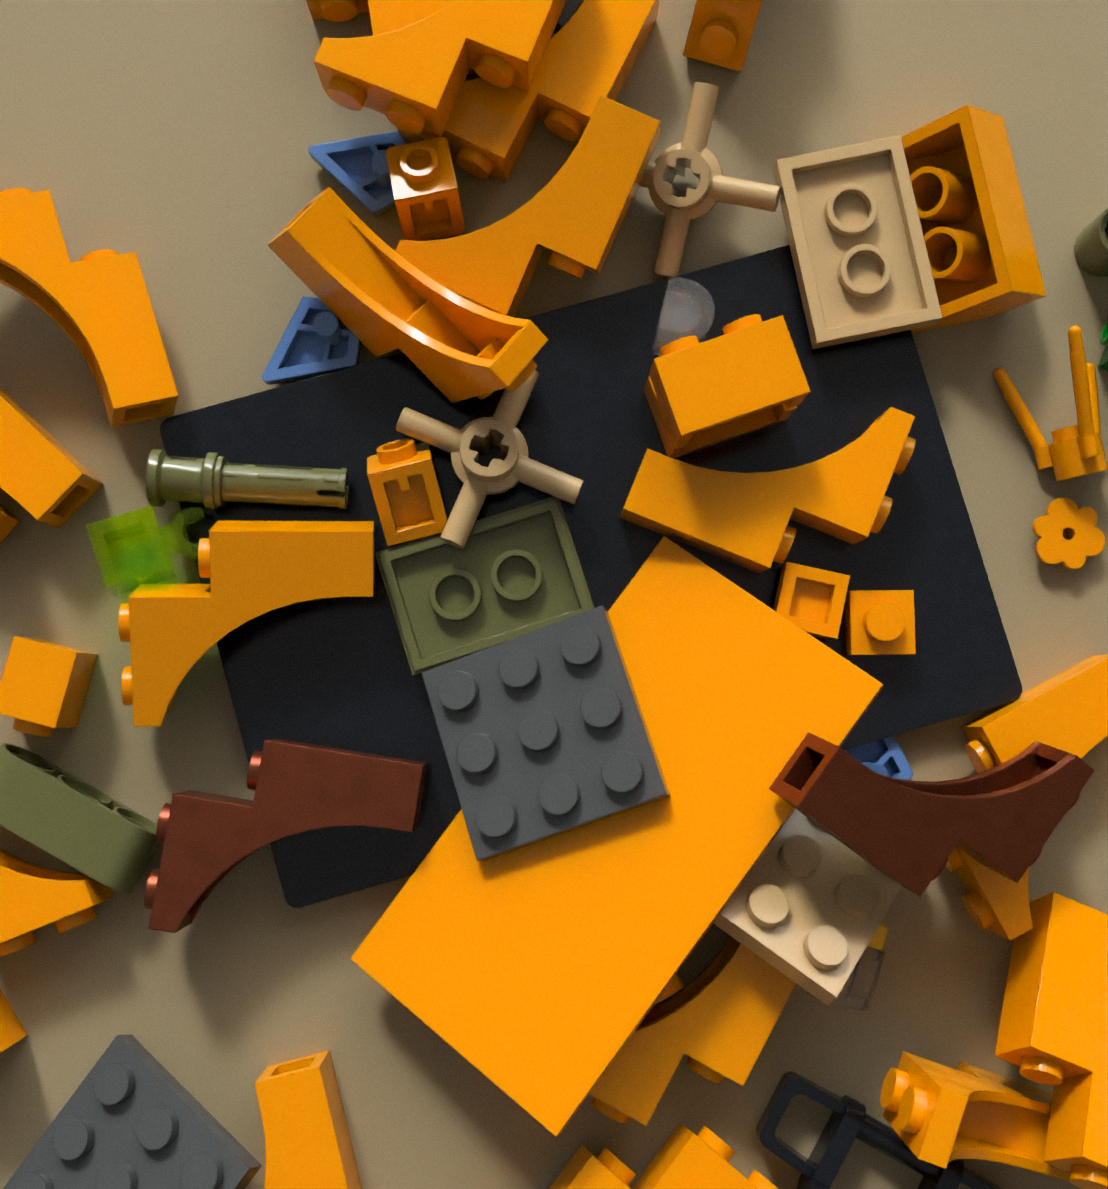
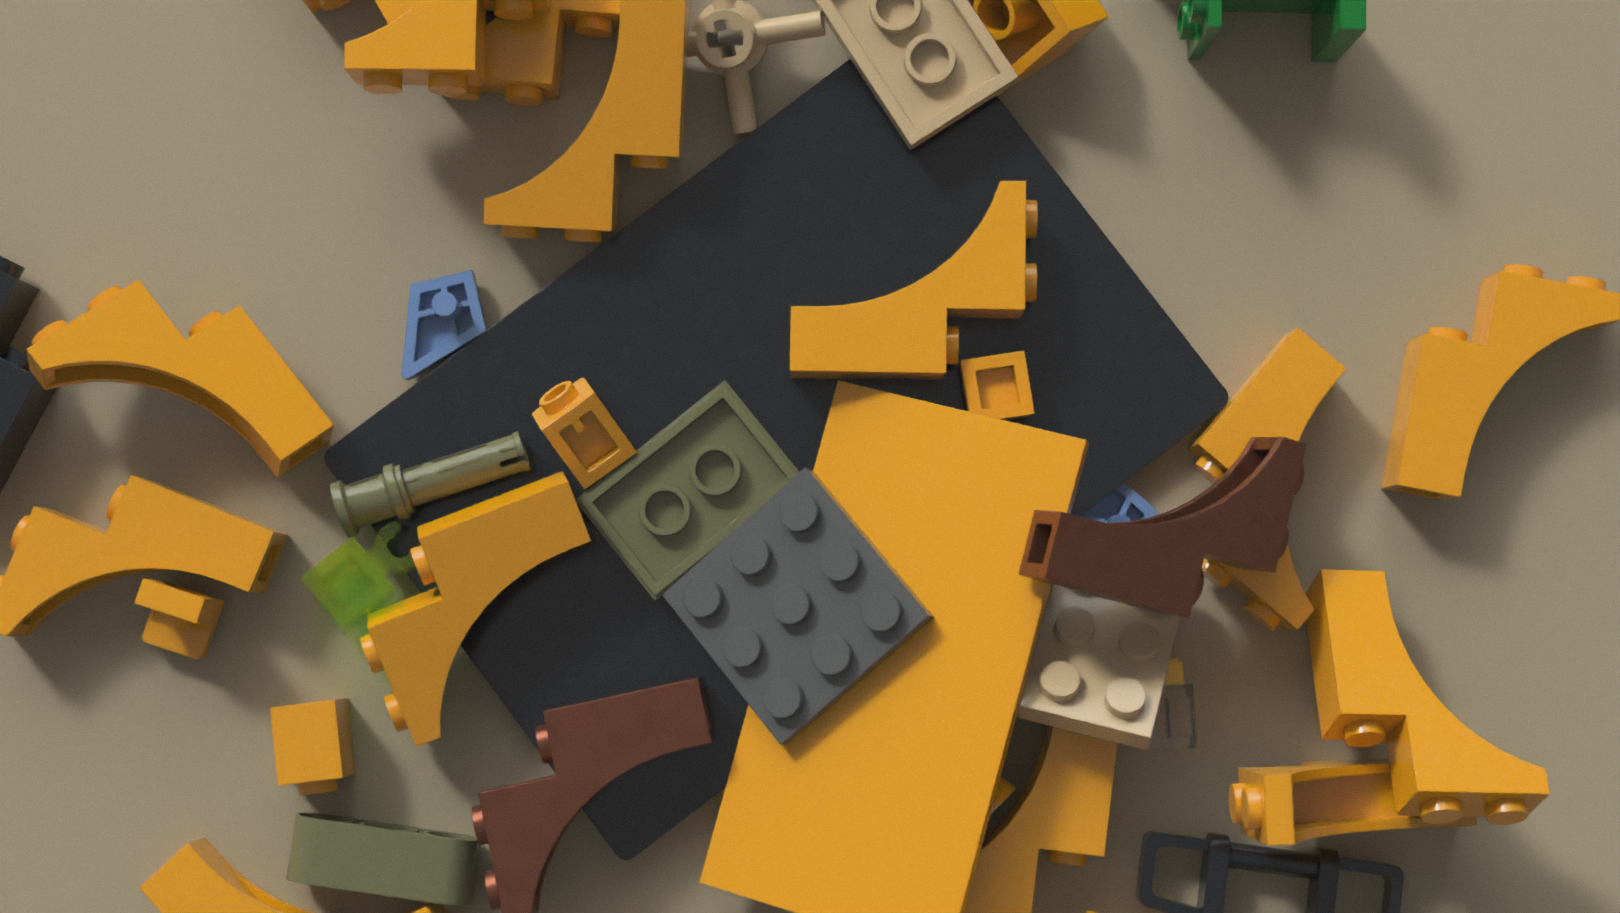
camera: 15 degrees left, 0 degrees up
(361, 168) = (428, 137): medium blue piece -> none
(397, 306) = (510, 262): light orange arch -> none
(425, 189) = (488, 139): light orange bracket -> none
(500, 475) = (630, 353): tan bar -> none
(684, 312) = (778, 170): clear brick -> none
(724, 384) = (838, 220): light orange piece -> none
(880, 623) = (1070, 383): light orange plate -> none
(1076, 448) = (1195, 145): light orange plant -> none
(1083, 536) = (1233, 227): light orange plant -> none

